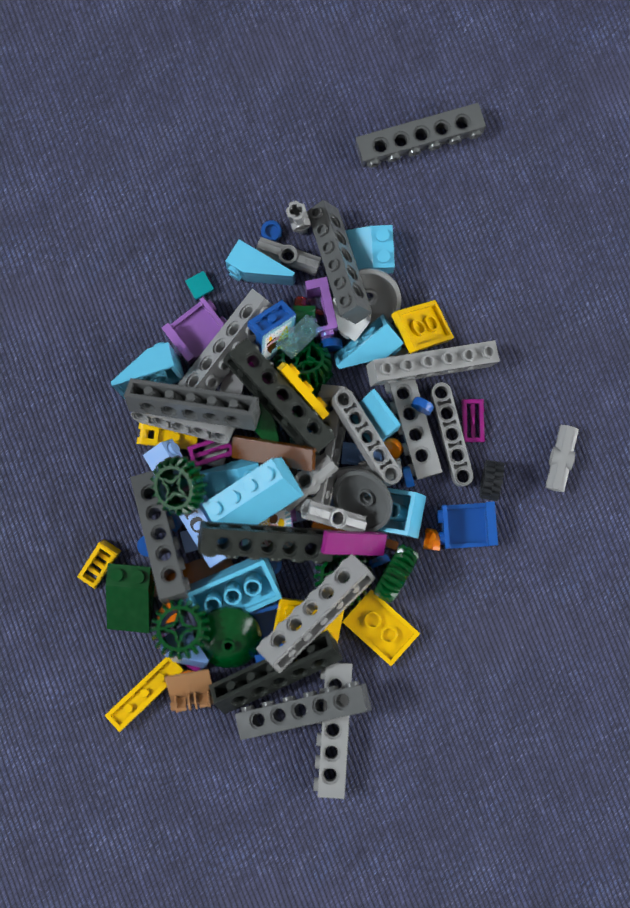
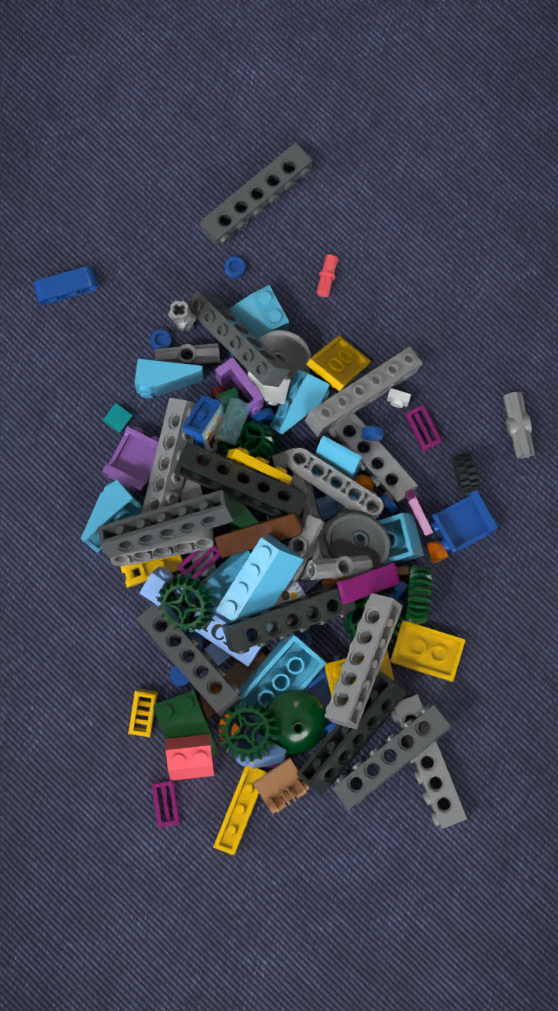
camera: 25 degrees left, 5 degrees down
(75, 674) = (166, 808): none -> magenta tile
(119, 624) = (189, 757): none -> coral slope
(208, 141) = (65, 285): none -> blue beam
(369, 194) = (235, 267): none -> blue tile
(431, 495) = (418, 512): none -> tile
(450, 240) = (327, 275): none -> coral axle
(451, 424) = (408, 438): light grey beam -> none
(462, 383) = (398, 398): none -> white plate

